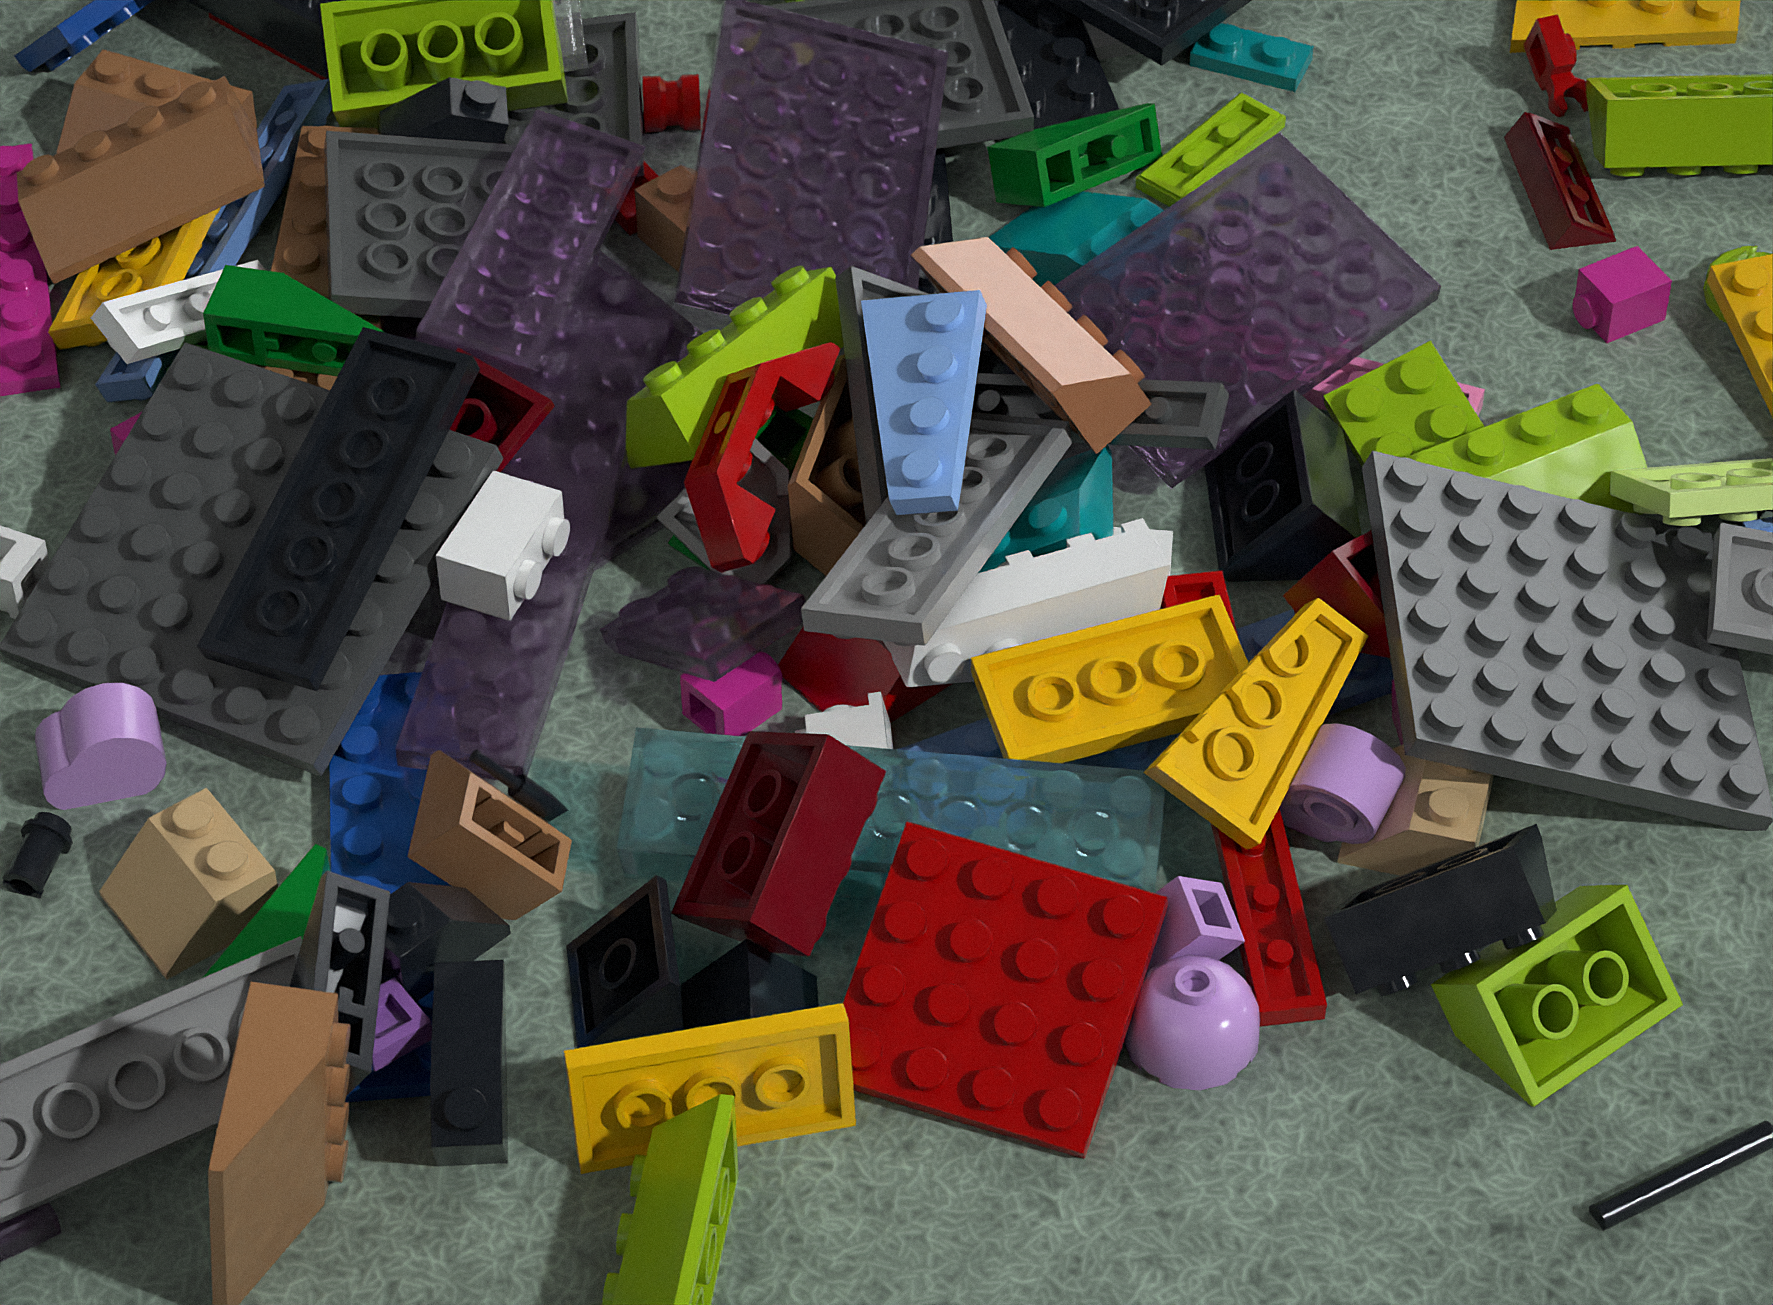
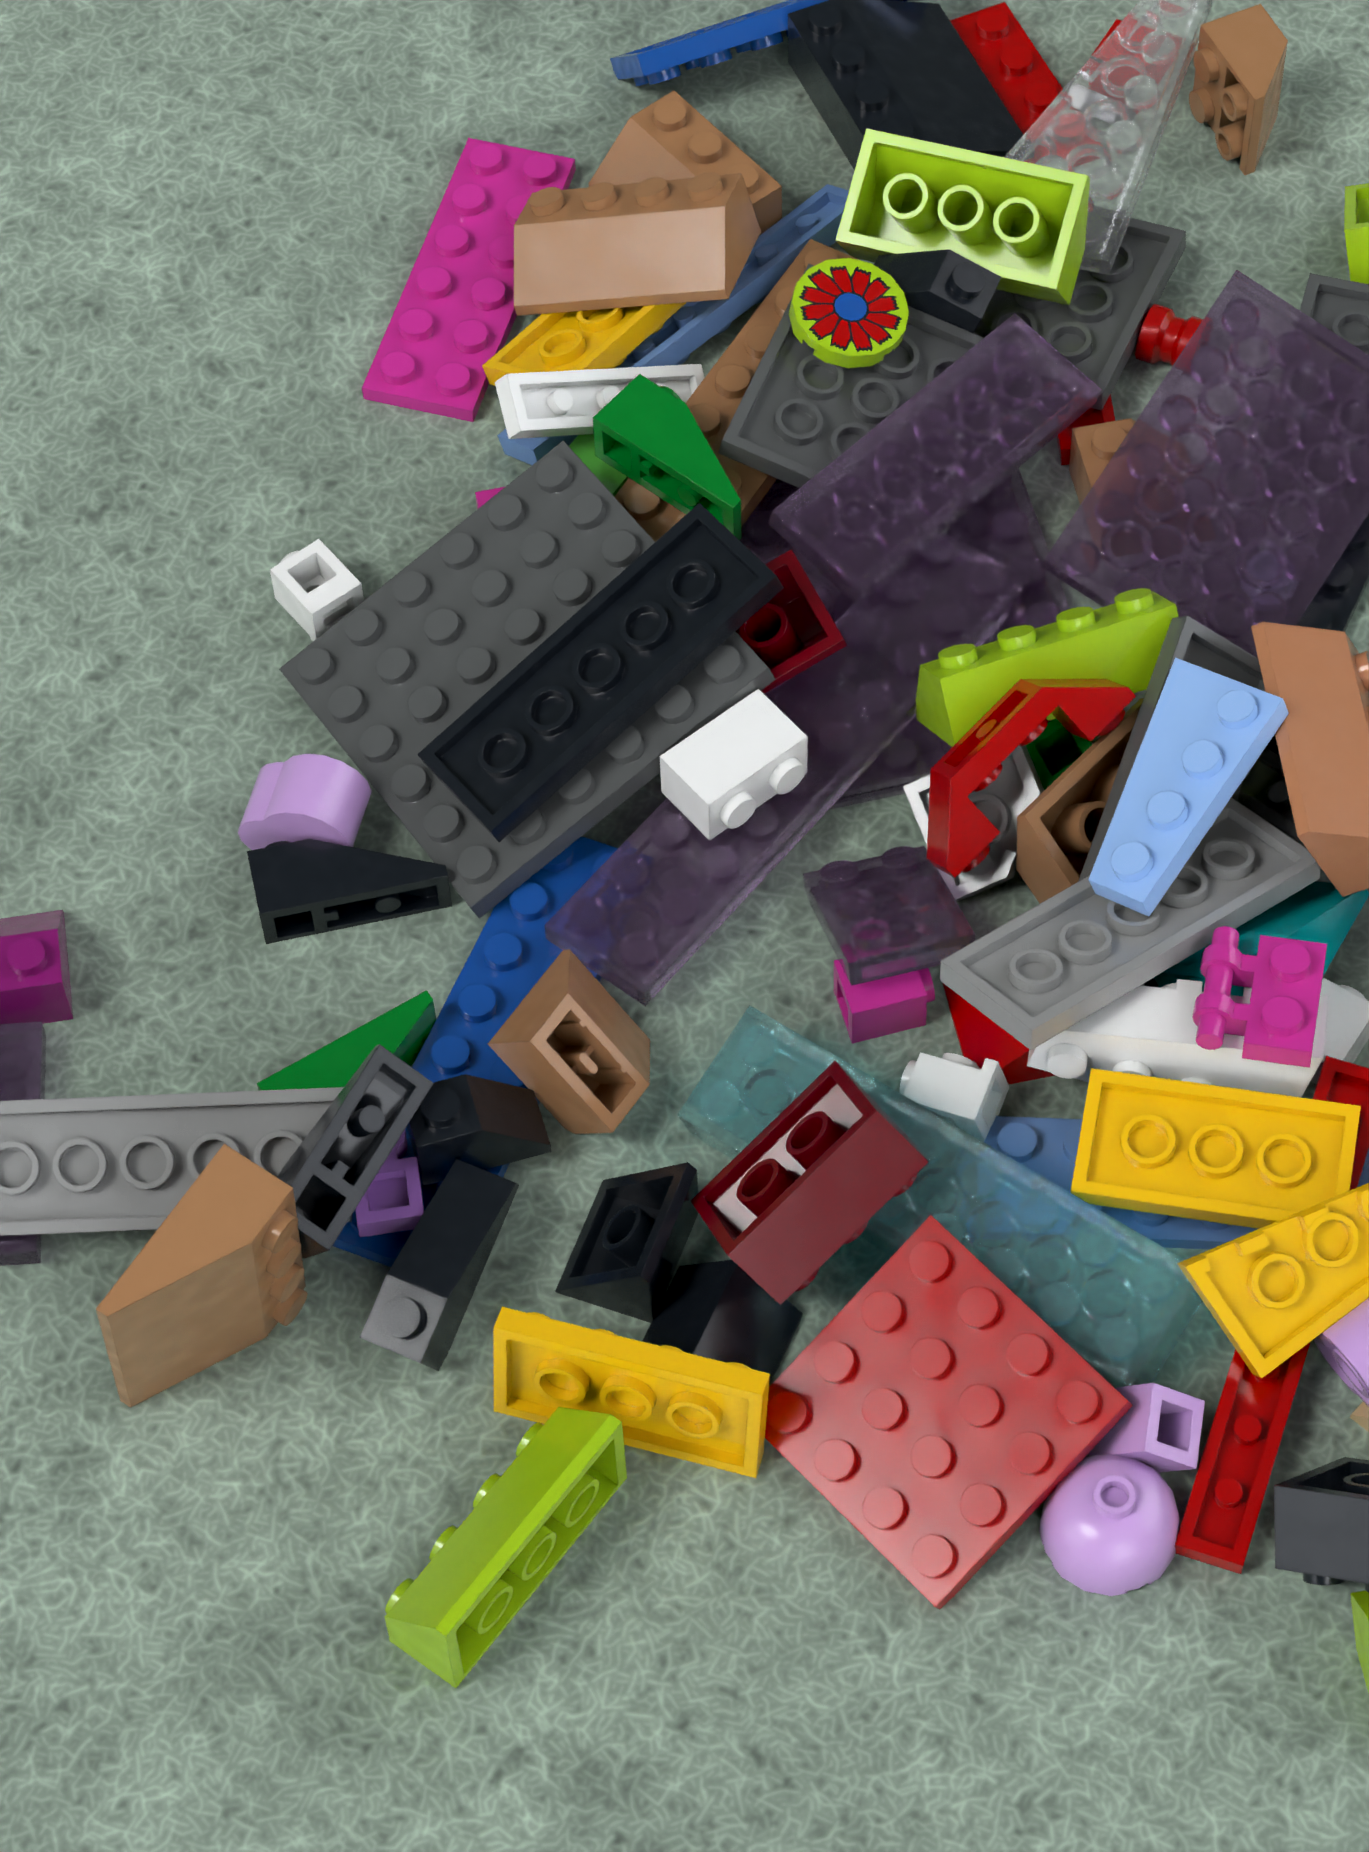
camera: 30 degrees right, 10 degrees up
(43, 842) = (206, 889): black pin -> none
(116, 806) = (331, 887): none -> black slope
(188, 883) = (309, 977): tan slope -> none
(387, 156) = (848, 312): none -> tile
(522, 788) = (638, 1011): black piece -> none
(1109, 531) = (1283, 999): none -> dark pink plate

